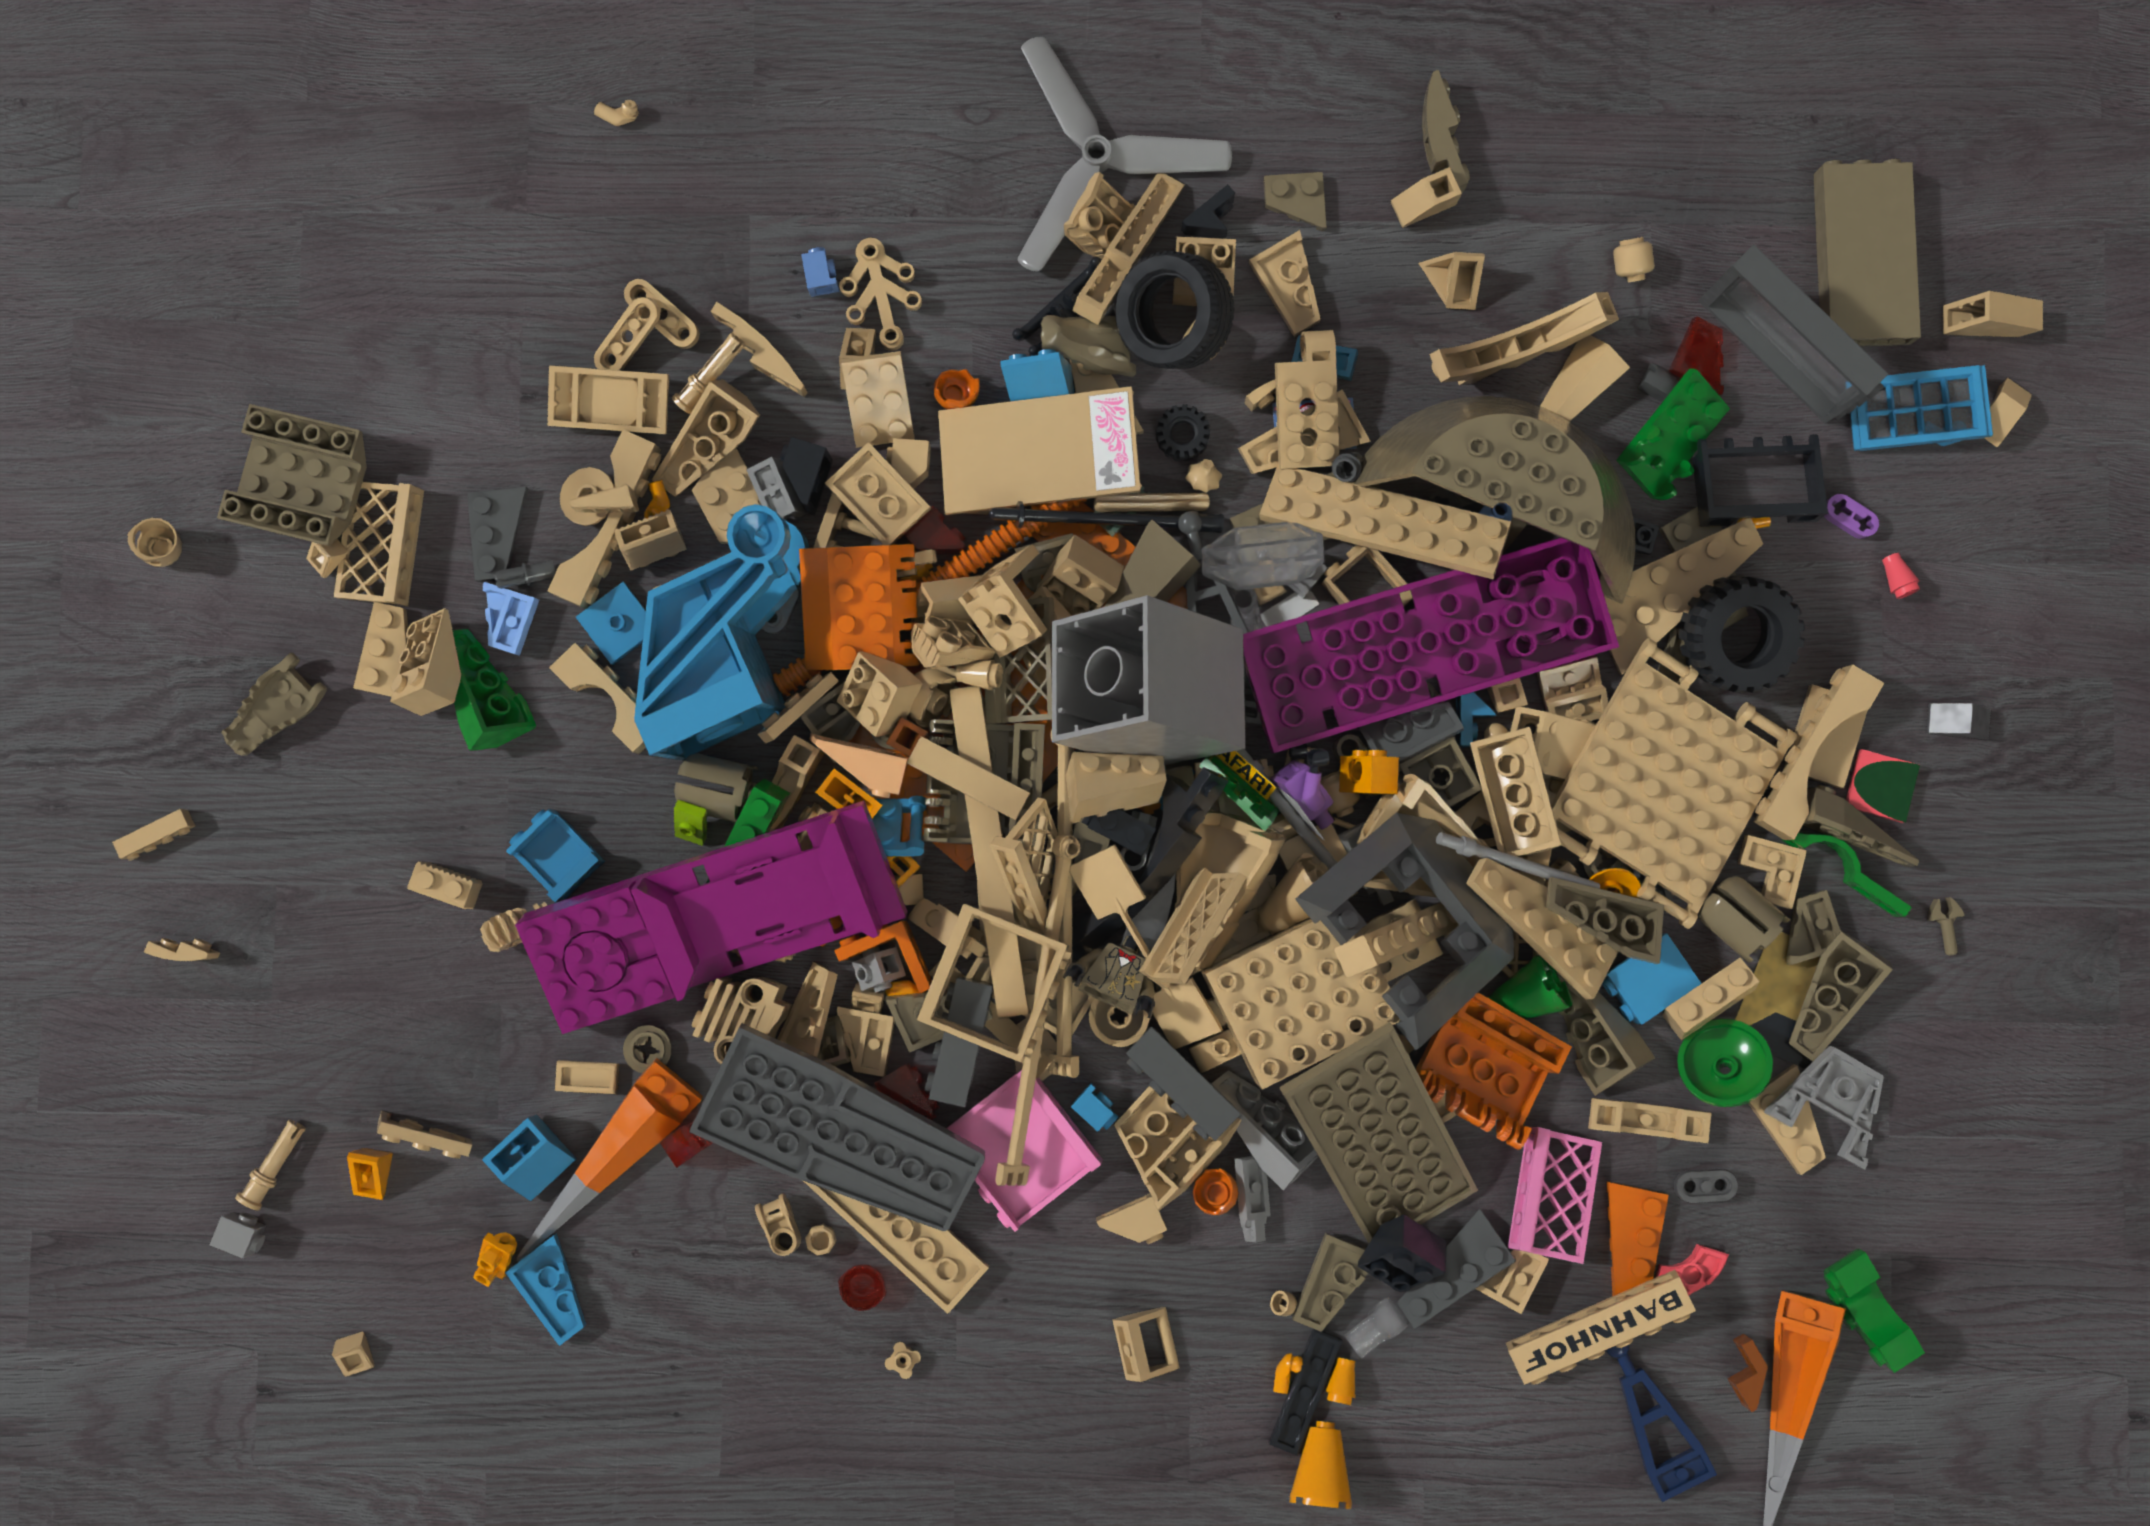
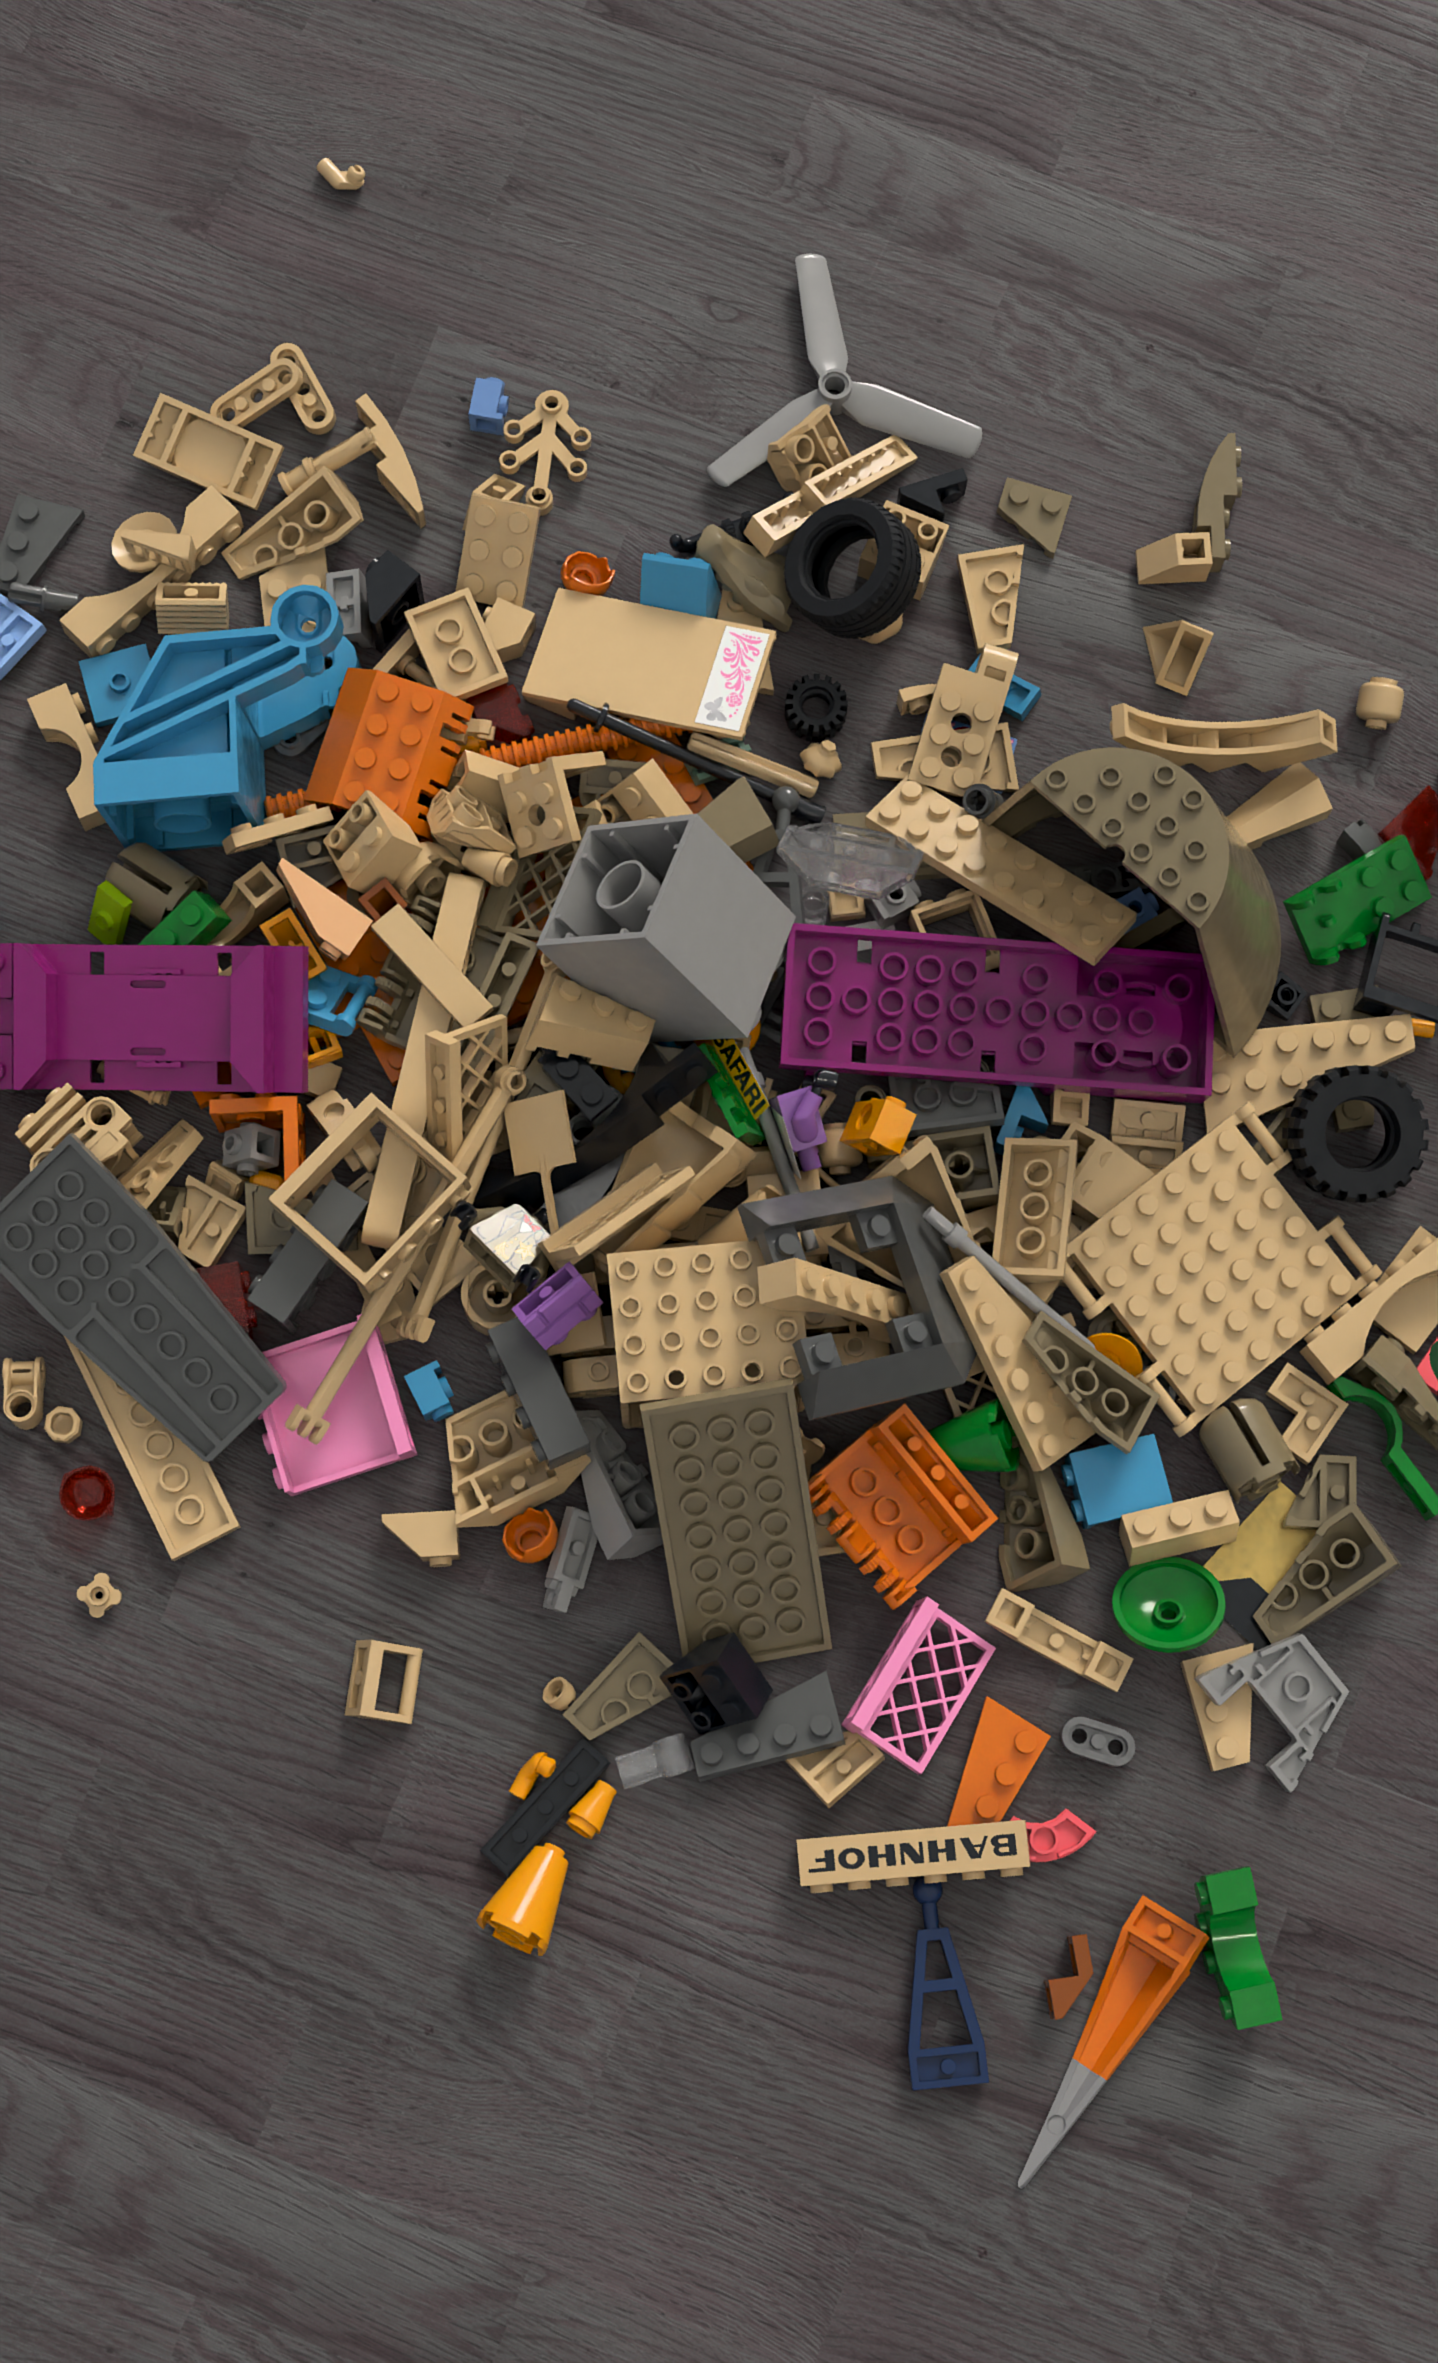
camera: 10 degrees right, 10 degrees down
(659, 501) = (221, 571): light orange arm -> none
(1176, 1019) = (557, 1306): none -> medium lavender brick

